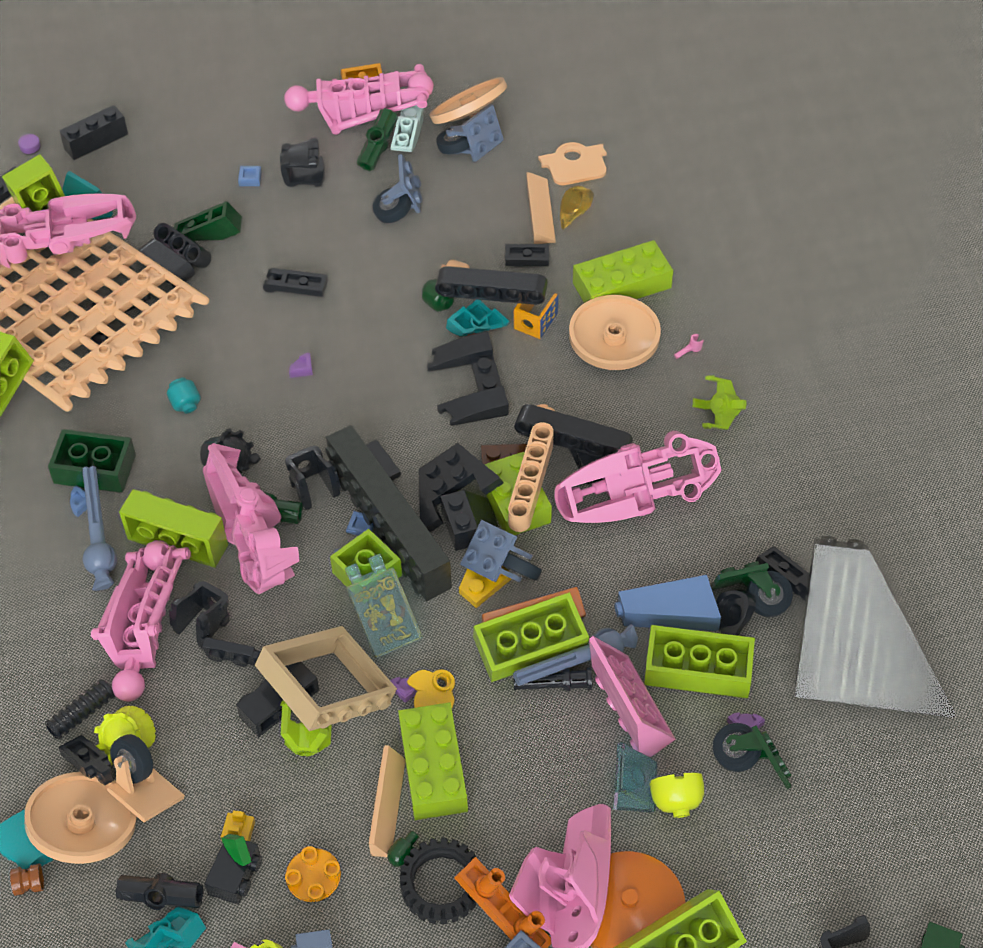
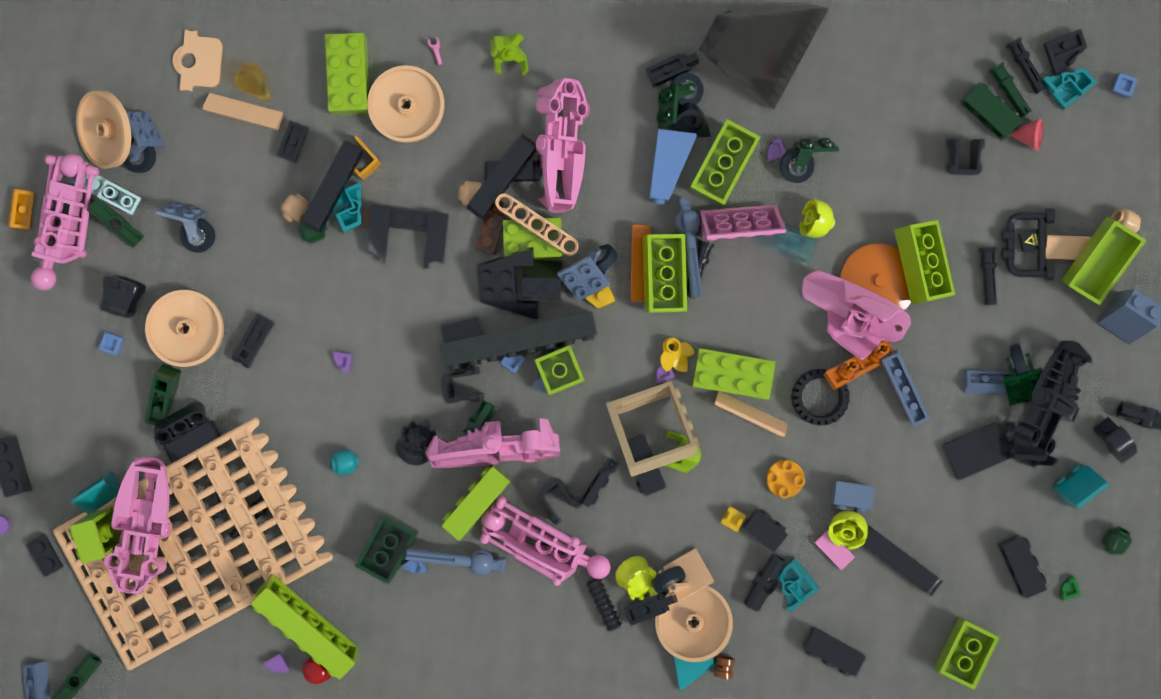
camera: 70 degrees left, 35 degrees up
(237, 848) = (760, 525): green tile -> none
(287, 220) = (167, 326): none -> light nougat dish
(382, 607) = (602, 370): clear light blue tile -> none
(401, 849) = (788, 414): dark green cylinder -> none

